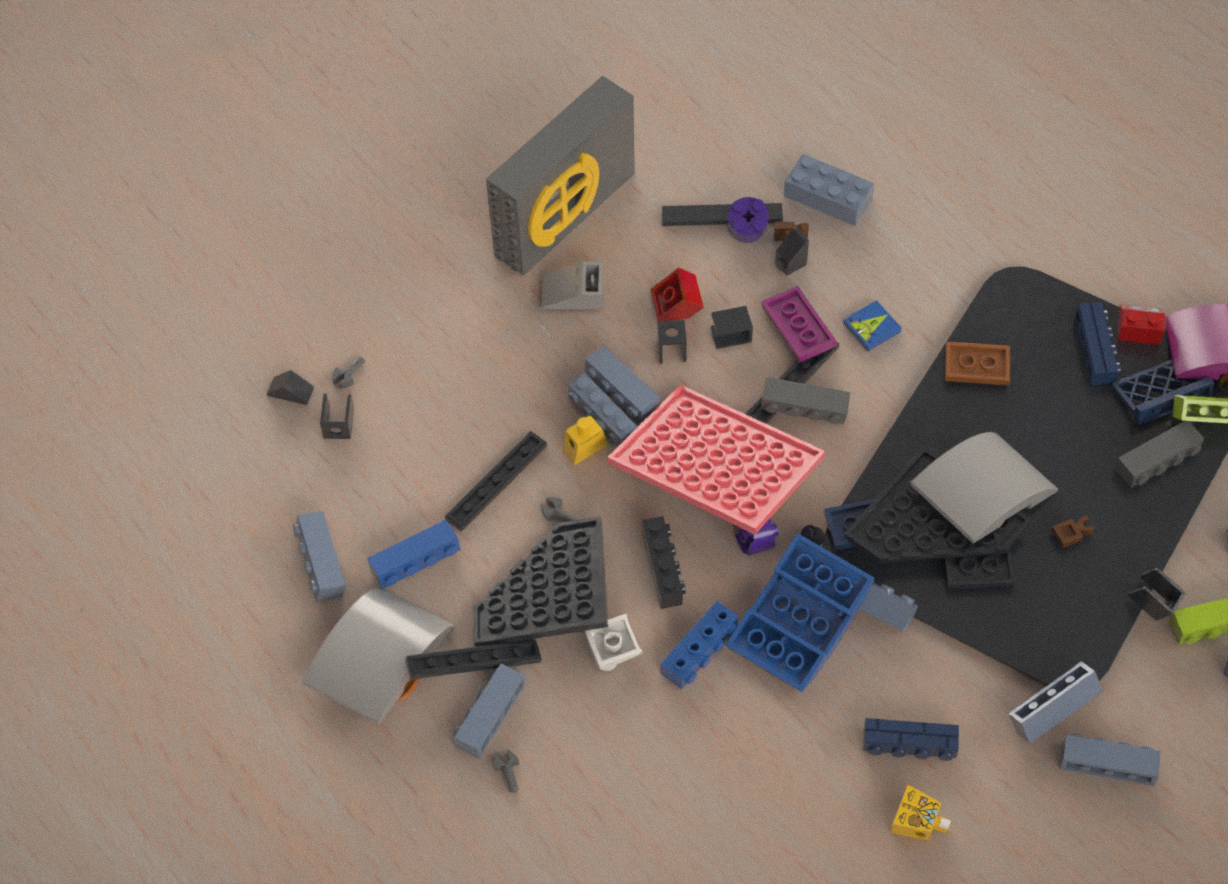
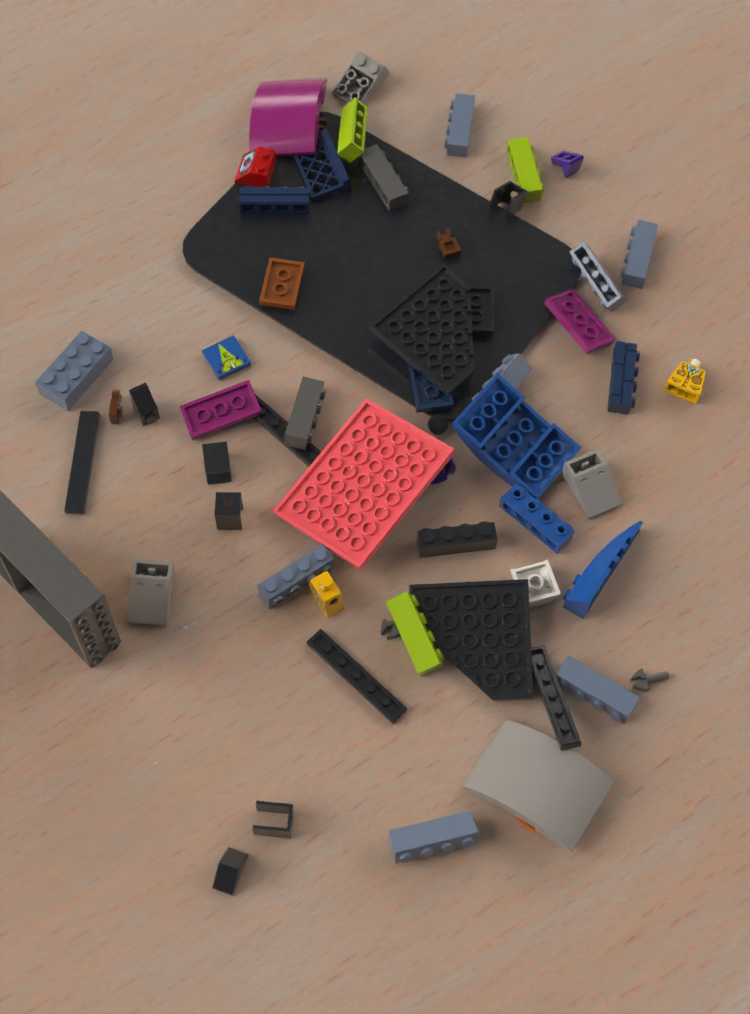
camera: 90 degrees left, 5 degrees up
(348, 380) = (216, 812): dark grey bar -> none
(414, 554) = (437, 748): blue brick -> none
(541, 523) = (414, 633): none -> lime brick
(621, 384) = (268, 557): sand blue brick -> none
(637, 713) = (598, 572): none -> blue wedge
(677, 296) = (174, 506): red slope -> none
(748, 208) = (100, 435): dark purple brick -> none
(751, 702) = (592, 483): none -> light grey slope
(981, 484) = (412, 289): light grey slope -> none
(986, 686) = (579, 321): none -> magenta plate

